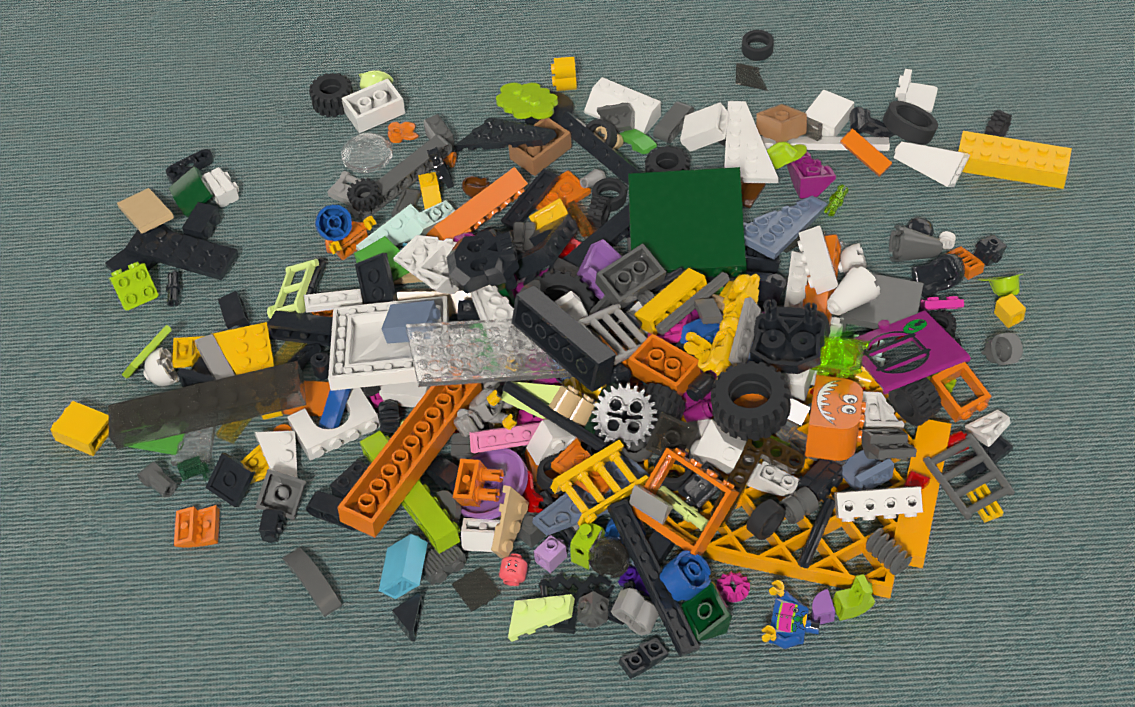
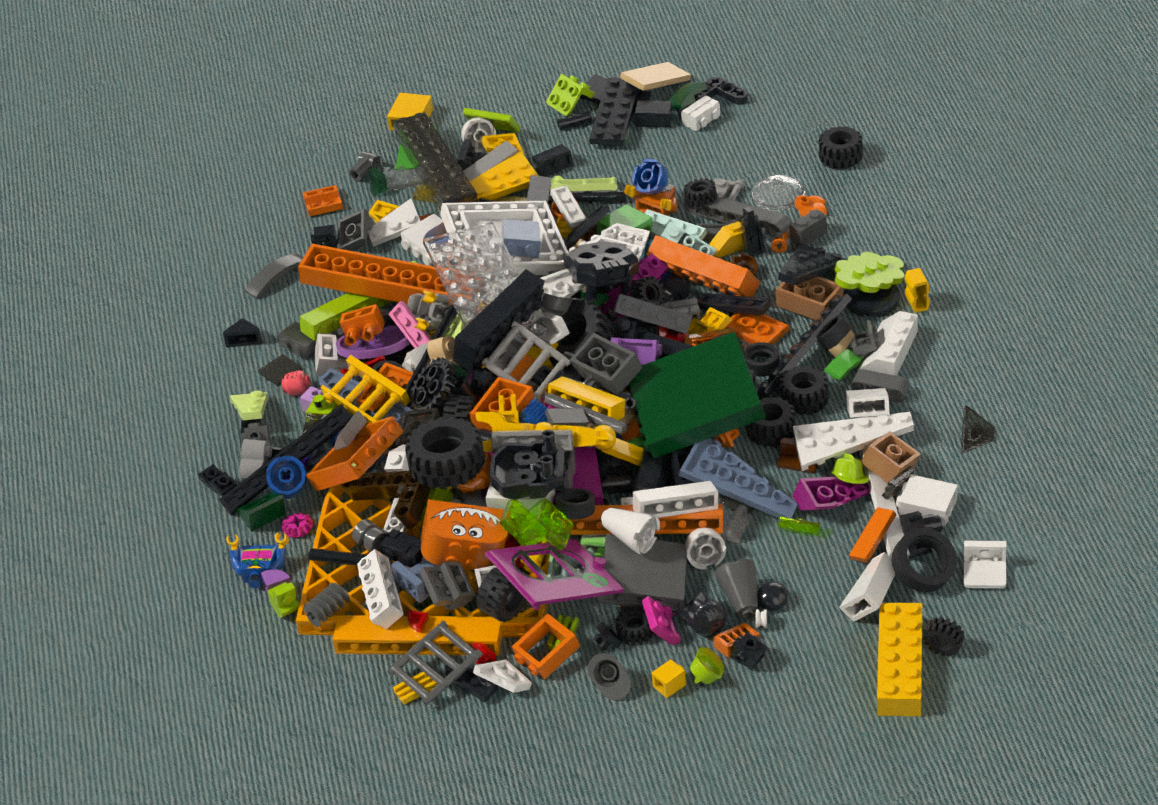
camera: 80 degrees right, 10 degrees down
(230, 480) = (366, 199): black plate -> none
(373, 77) = (864, 168): yellowish green piece -> none
(373, 105) = (832, 176): white brick -> none
(403, 566) = (283, 313): medium azure brick -> none
(511, 518) = (326, 355): tan wing -> none
(583, 588) = (275, 422): black piece -> none
(591, 178) = (777, 340): light grey cone -> none
(757, 54) = (1024, 439): black tyre -> none
(765, 519) = (346, 512): black tyre -> none

